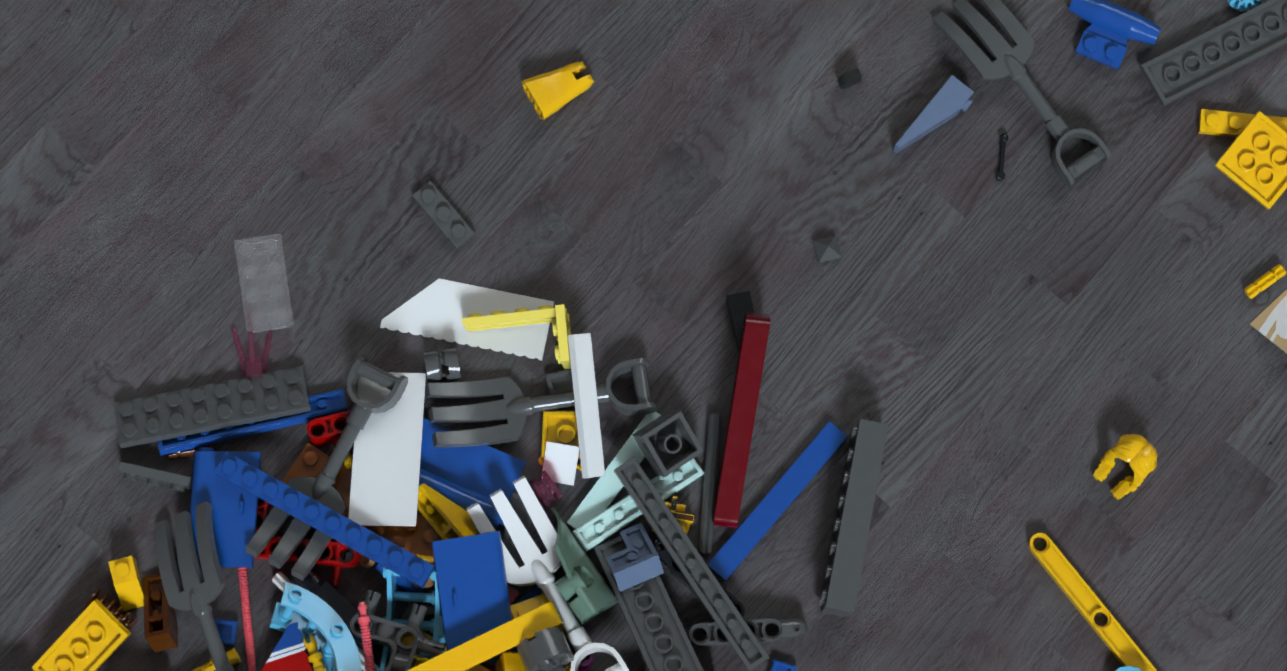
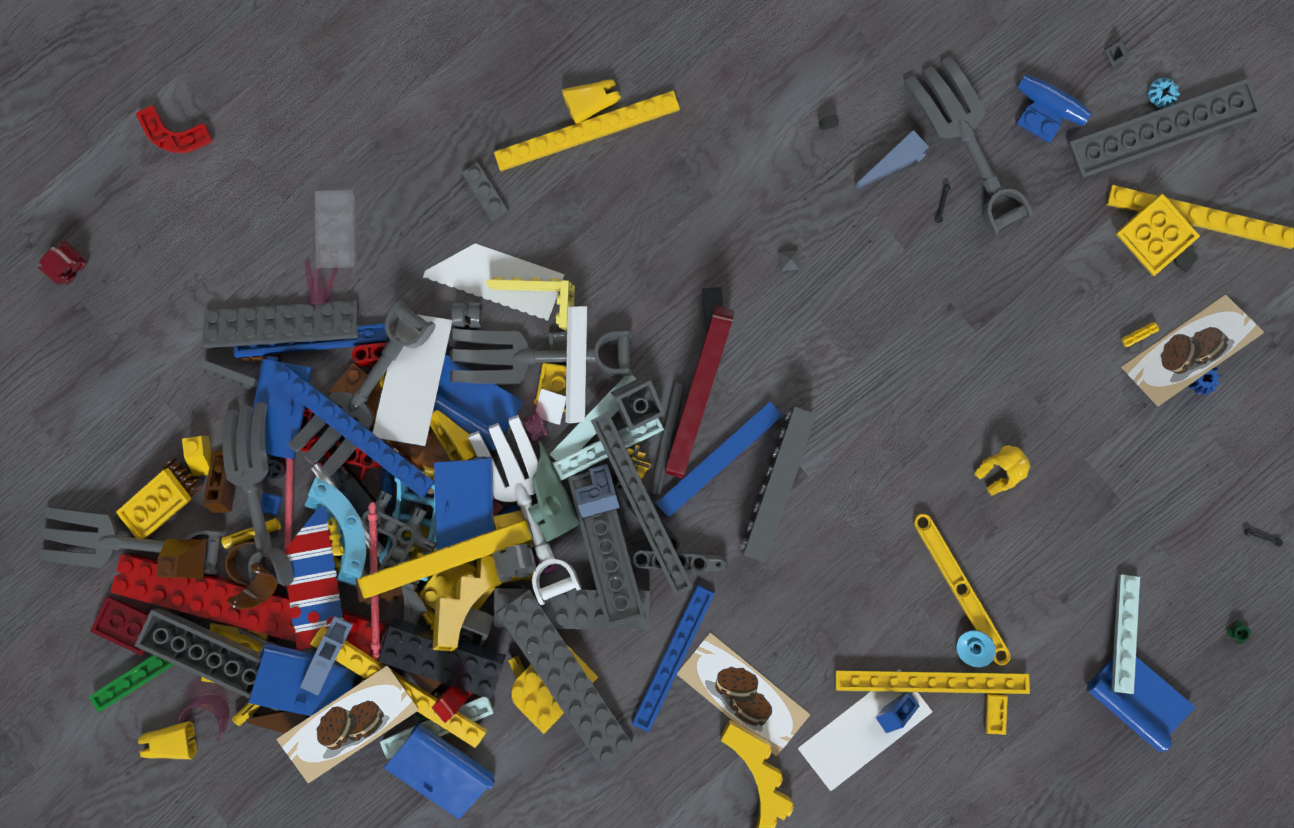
camera: 20 degrees right, 10 degrees up
(49, 203) = (172, 141): none -> red plate
(232, 584) = (275, 472): none -> black wheel
(367, 583) = (386, 484): none -> blue axle
(557, 126) = (586, 131): none -> yellow plate

